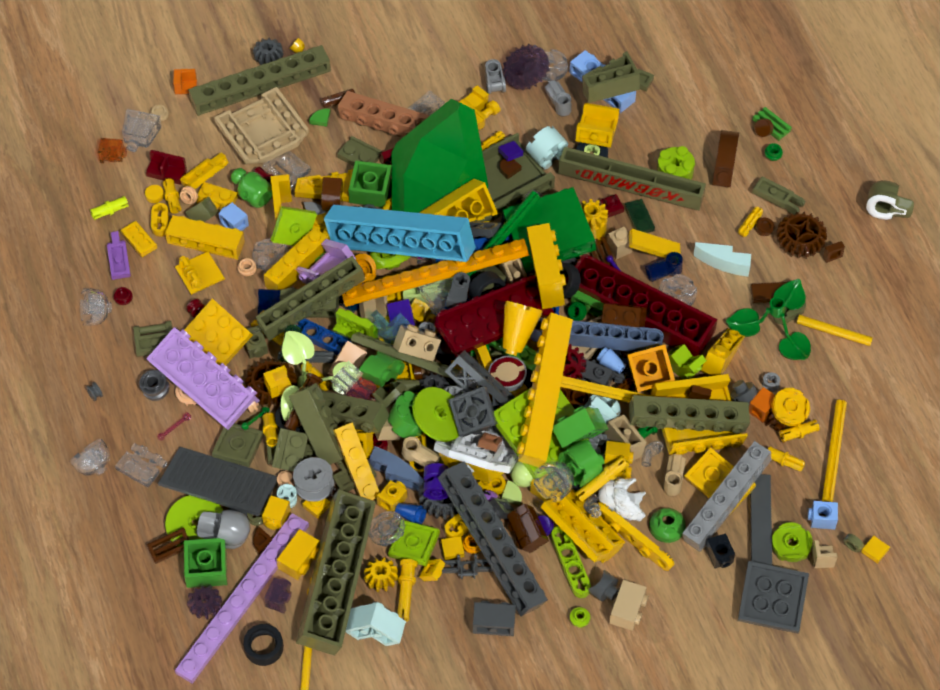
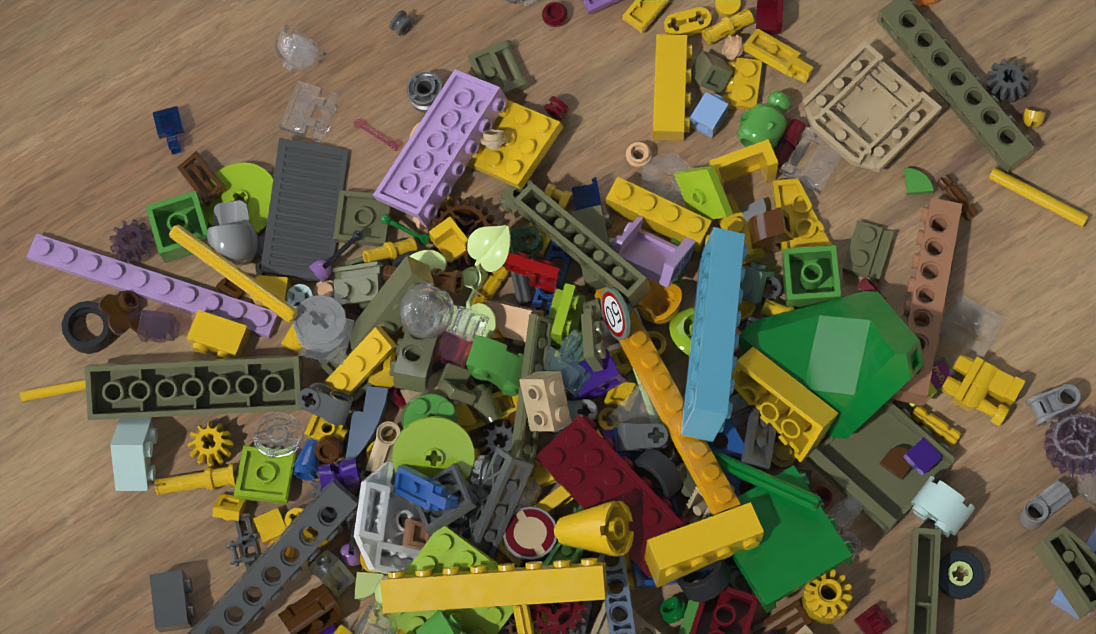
camera: 85 degrees right, 15 degrees up
(119, 560) = (168, 125): none -> clear blue plate
(199, 272) = (615, 97): yellow hinge -> none
(210, 340) = (493, 138): none -> tan plate
(254, 615) = (121, 311): none -> reddish brown plate
(259, 522) = (233, 273): none -> yellow axle
(270, 474) = (322, 268): none -> hinge
(322, 330) = (541, 274): none -> red plate
(328, 470) = (326, 337): none -> clear piece
(335, 390) = (426, 311): none -> clear cylinder
(350, 58) = (1038, 197): none -> yellow piece
(368, 285) = (616, 313): none -> piece
(377, 481) = (326, 403): none -> dark grey piece
(388, 307) = (592, 332): none -> olive hinge
(408, 493) = (328, 449): none -> reddish brown tile
(464, 419) = (422, 490): none -> blue hinge
(597, 125) = (1003, 572): yellow panel -> none

